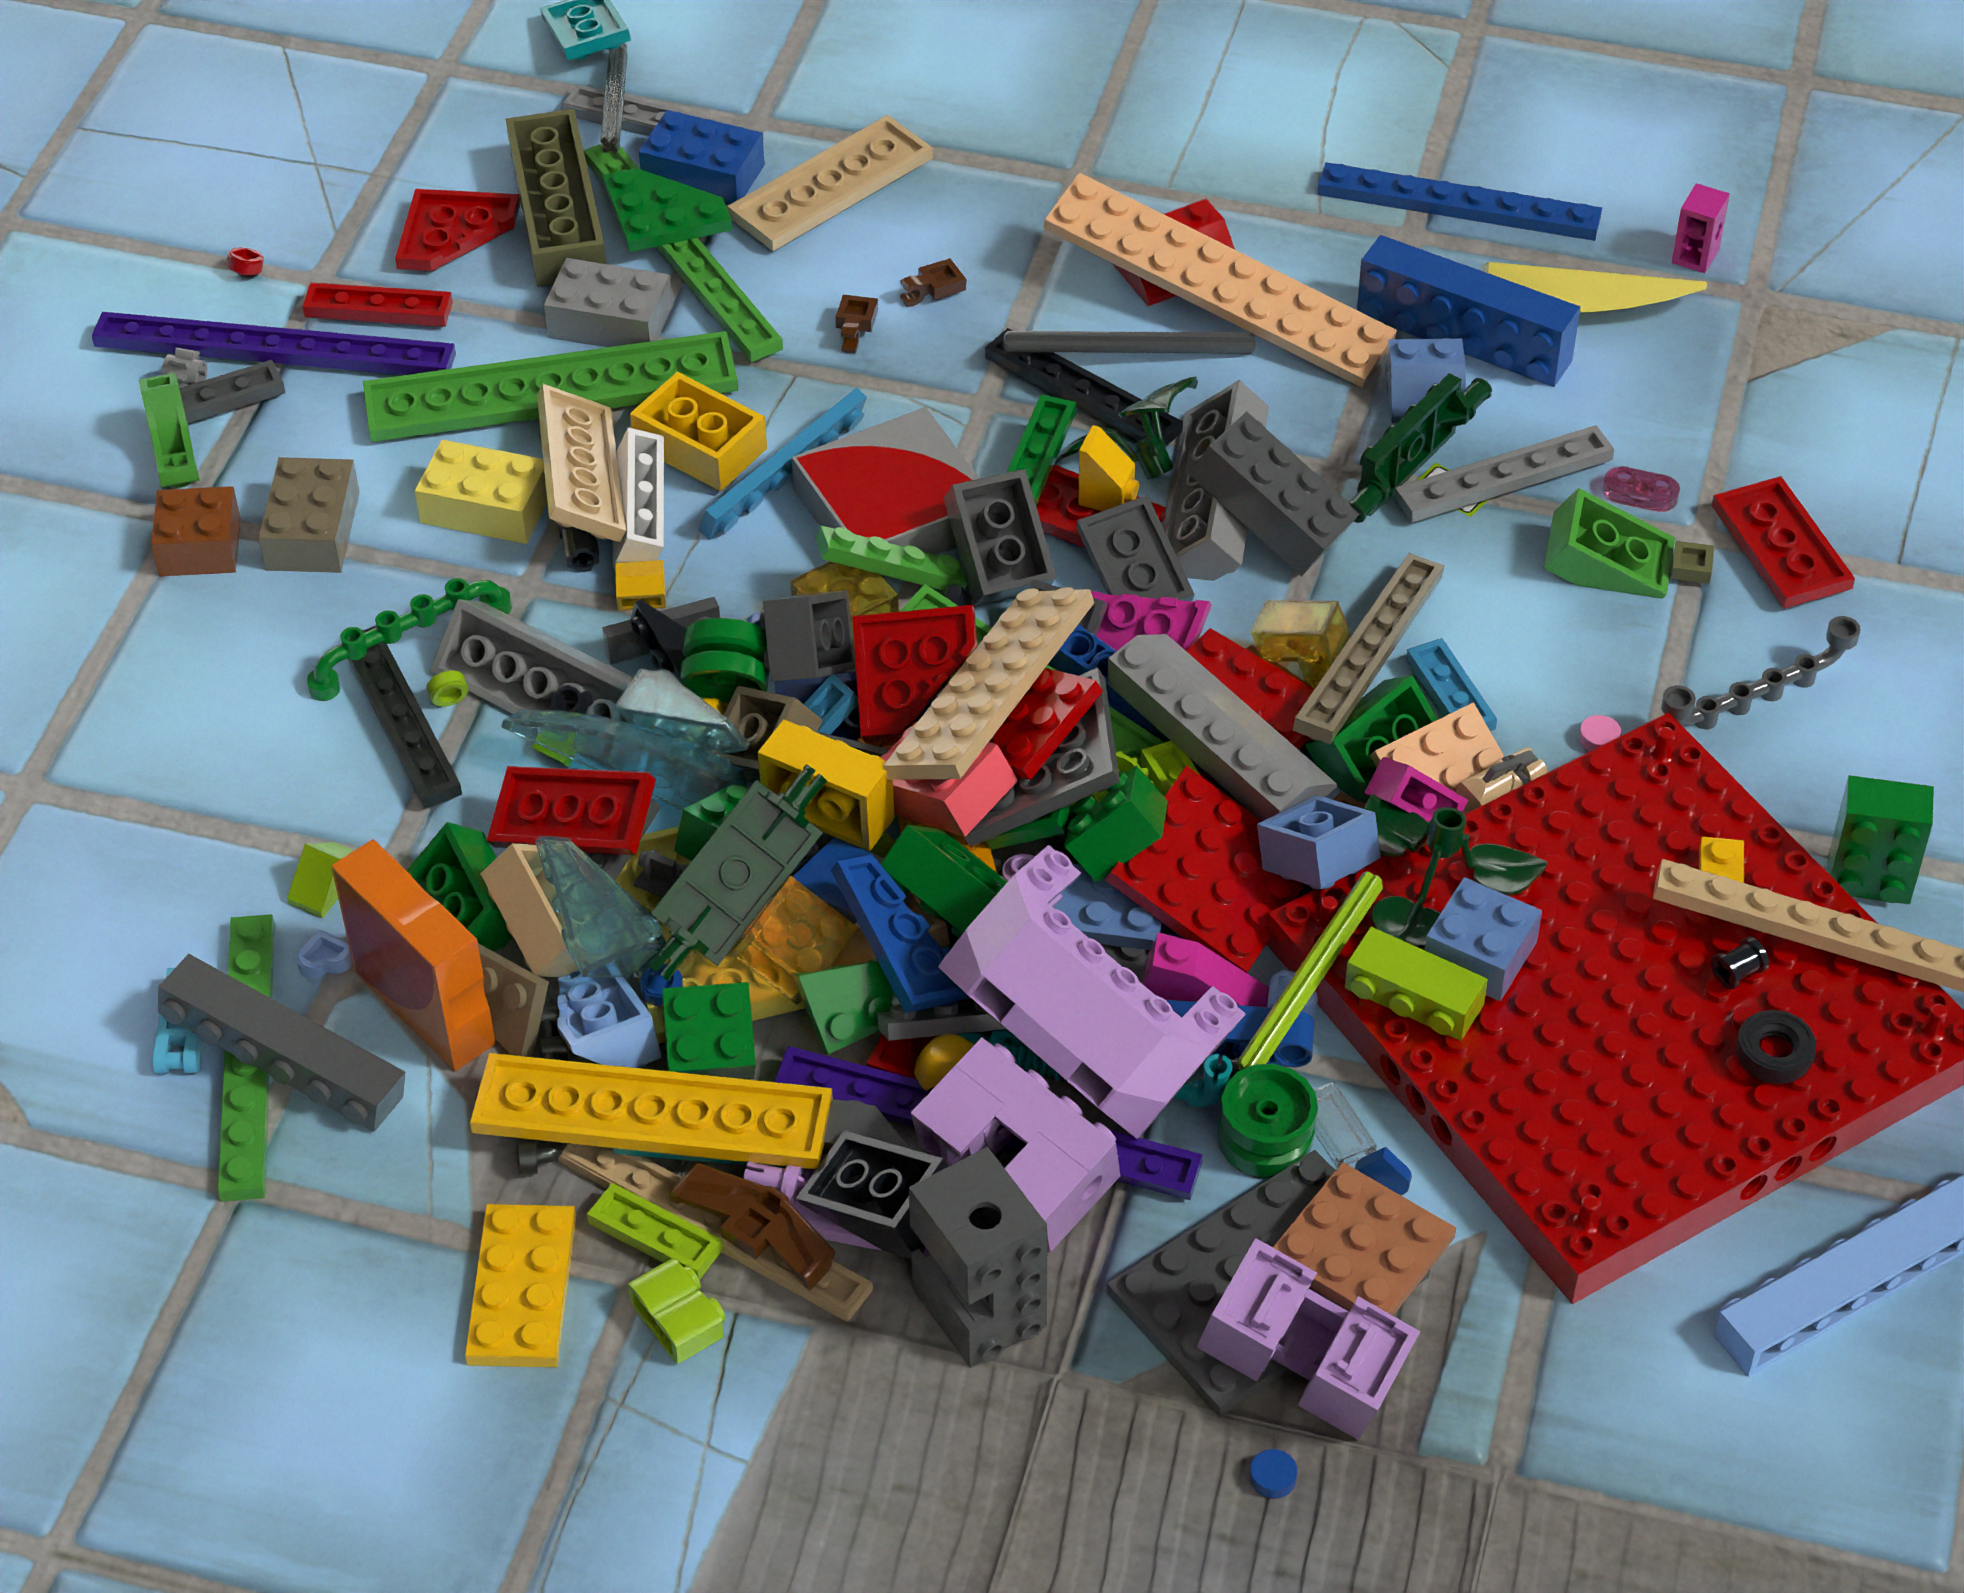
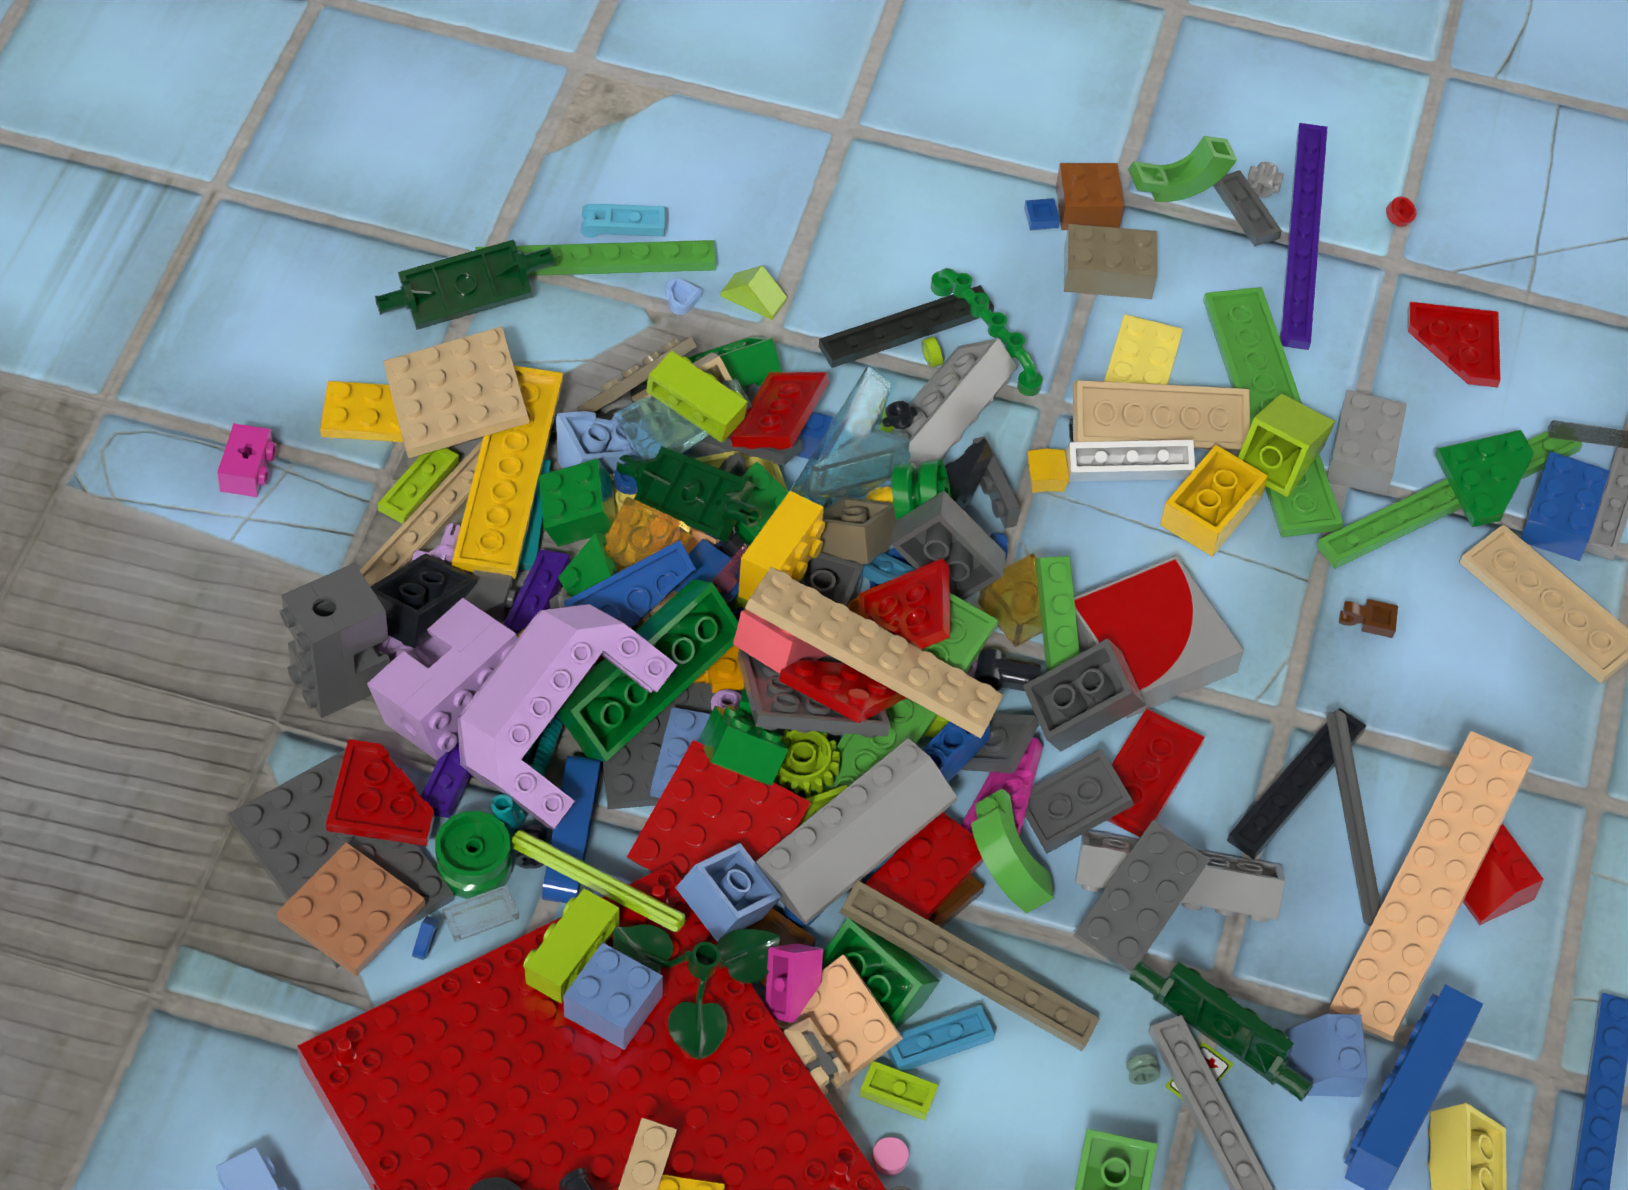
camera: 85 degrees right, 5 degrees up
(216, 581) = (1041, 214): none -> blue plate
(281, 1042) = (585, 263): dark grey brick -> none
(300, 1189) = (465, 283): none -> dark green plate
(377, 304) = (1358, 296): red plate -> none
(414, 954) = (635, 312): orange tile -> none
(517, 1175) = (455, 392): none -> tan plate
(554, 192) = (1494, 401): olive brick -> none
(582, 863) = (696, 396): none -> lime brick
(615, 1442) = (246, 460): none -> dark pink brick
(623, 355) = (1285, 442): none -> lime slope
(676, 1309) = (348, 492): lime brick -> none
(757, 1219) = (409, 532): reddish brown plate -> none
(777, 469) = (1221, 586): dark azure plate -> none
(848, 842) = (726, 577): none -> clear pink plate
(936, 279) = (1427, 679): reddish brown plate -> none
(1043, 440) = (1197, 732): green plate -> none
(1105, 473) = (1160, 771): yellow slope -> none
(1150, 450) = (1221, 784): dark green plant -> none
(1188, 969) = (613, 820): dark pink slope -> none
(1194, 1223) = (377, 798): none -> red plate
(1208, 607) = (1005, 855): none -> bright green arch
(1273, 1473) = (172, 846): blue tile -> none
(1277, 1317) = (277, 824): lavender piece -> none
(1301, 633) = (975, 907): clear yellow brick -> none
(1463, 523) = (1142, 1069): none -> sand green bush
(1522, 720) = (898, 1090): none -> lime plate

